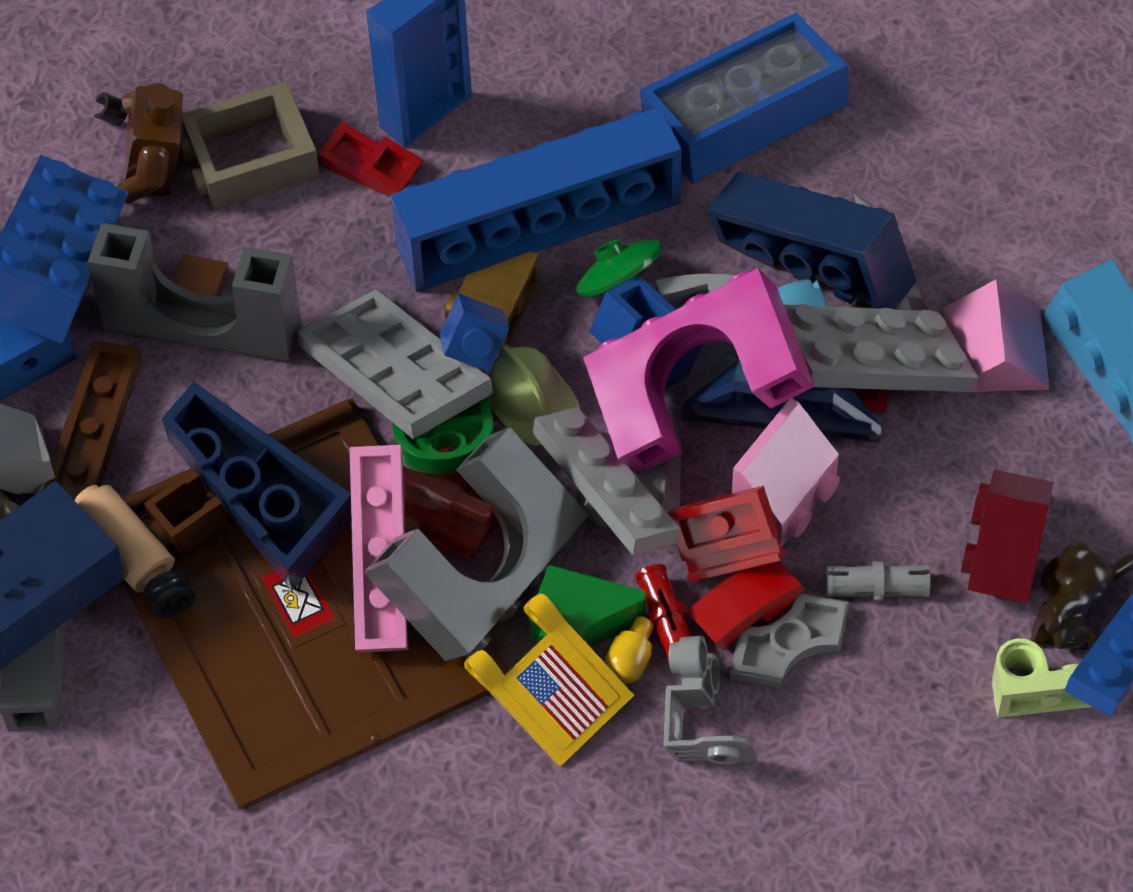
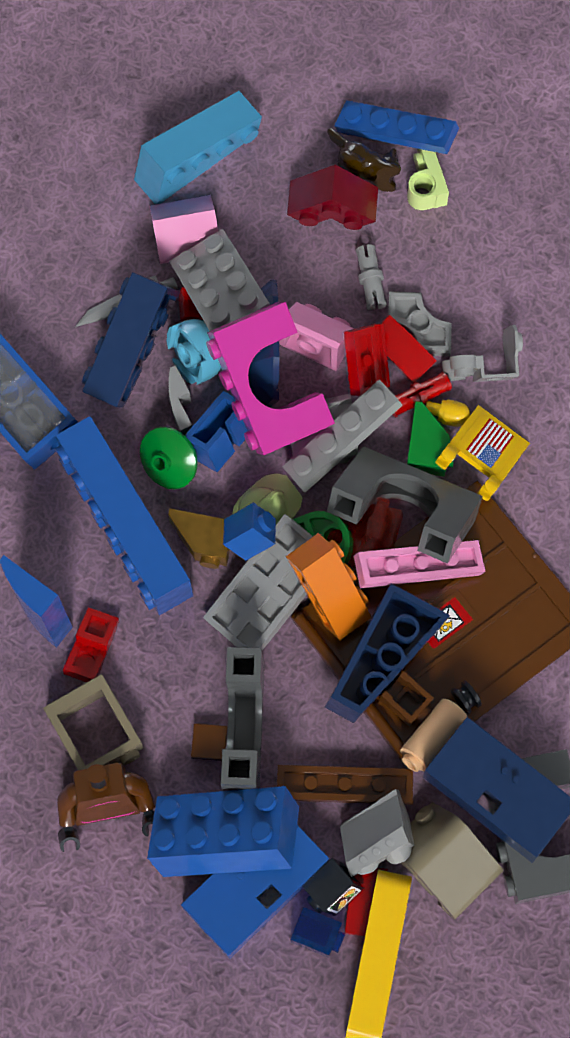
camera: 100 degrees left, 15 degrees up
(365, 407) = (330, 585): none -> orange brick

